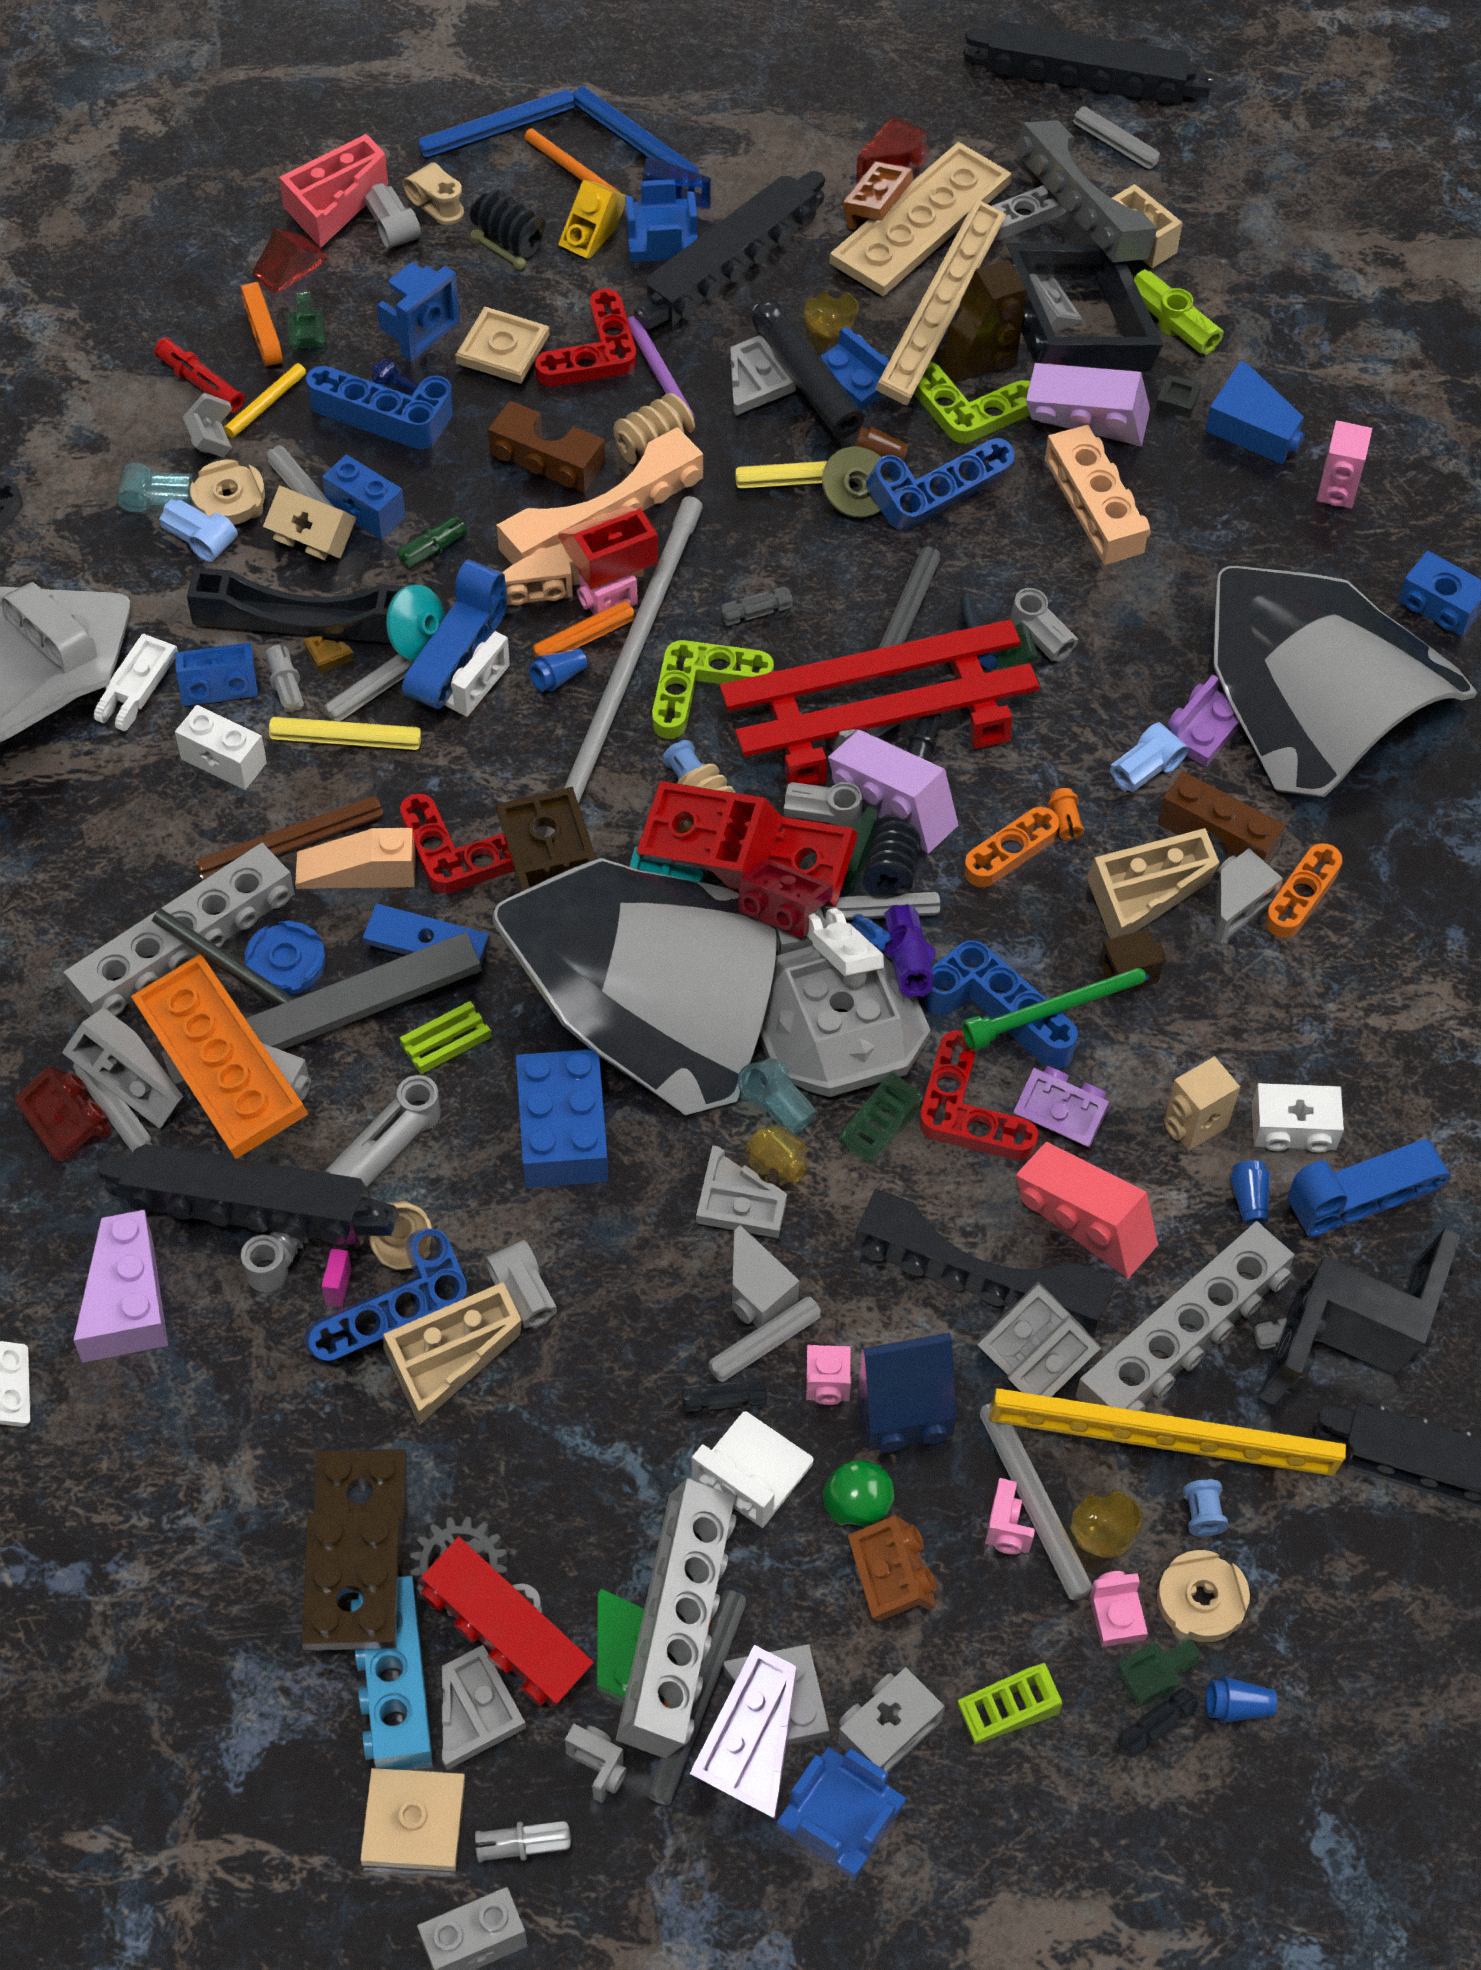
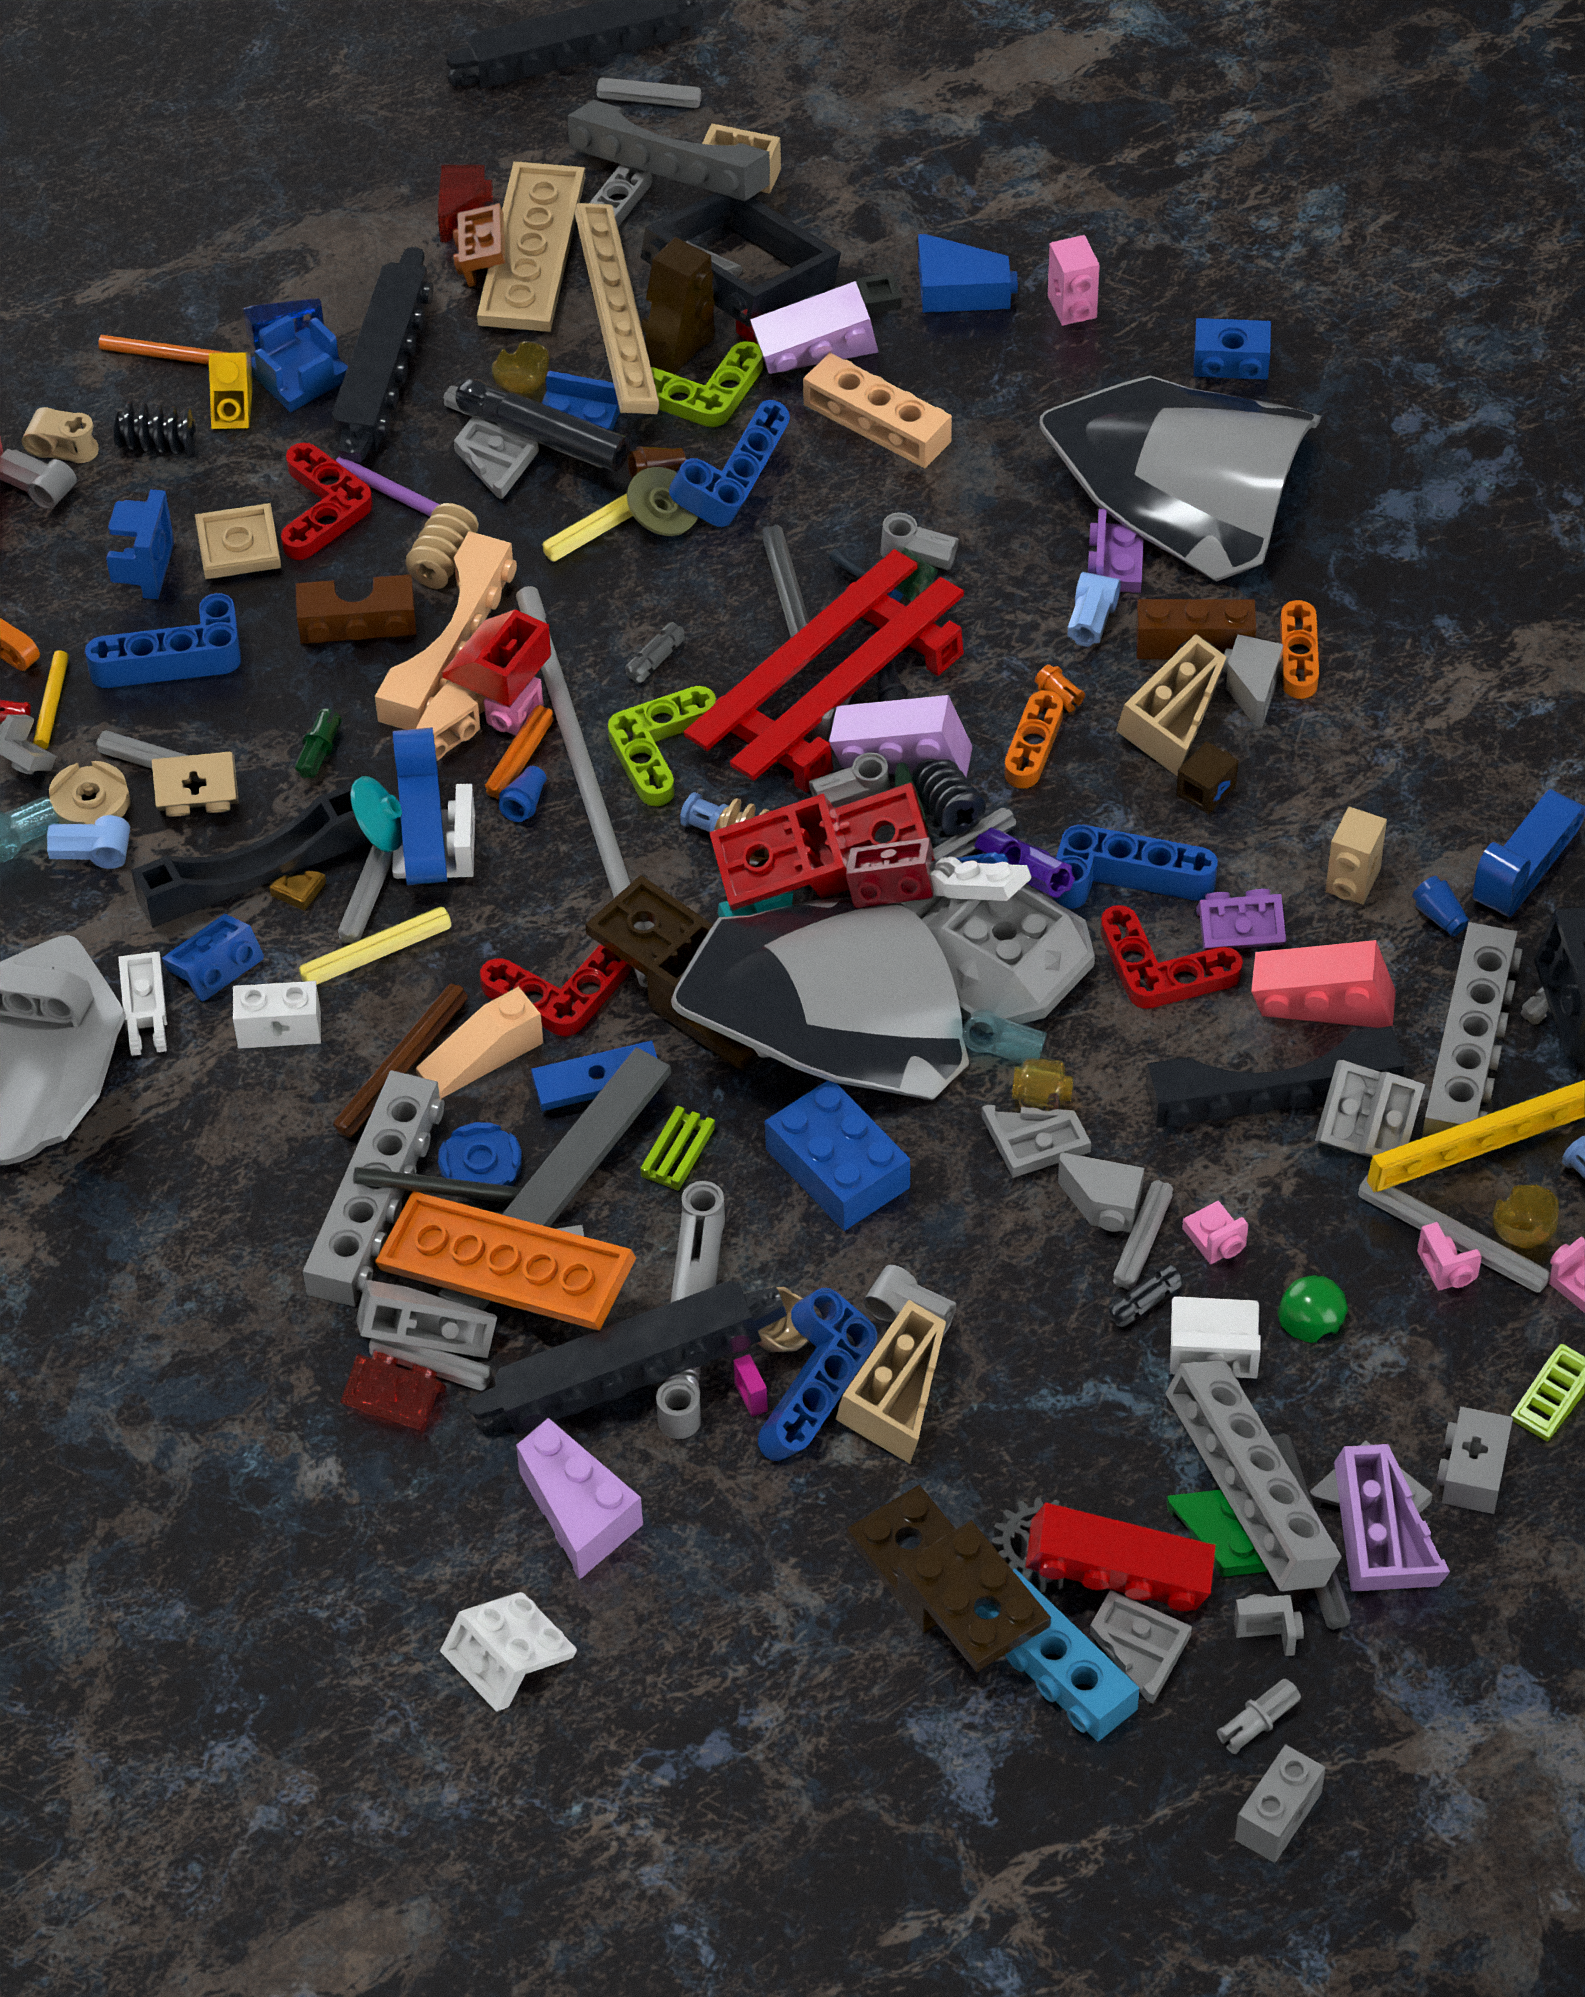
camera: 30 degrees left, 5 degrees down
(284, 678) = (282, 928): light grey axle -> none
(305, 325) = (34, 614): clear green plate -> none
(365, 495) = (226, 729): blue brick -> none
(387, 371) = (148, 616): clear blue hand -> none
(413, 1819) = (1157, 1754): tan plate -> none
(477, 237) = (128, 458): olive hinge -> none
(496, 123) = (61, 346): blue axle -> none
(628, 129) = (192, 293): blue axle -> none
(841, 1809) = (1489, 1543): blue panel -> none
(892, 1567) = (1384, 1347): dark orange bracket -> none
(896, 1097) = (1101, 986): clear green slope -> none
(907, 1393) = (1302, 1202): dark blue slope -> none
(980, 1031) = (1138, 892): green piece -> none
(1177, 314) = (827, 221): lime piece -> none
(1297, 1117) = (1433, 828): white brick -> none

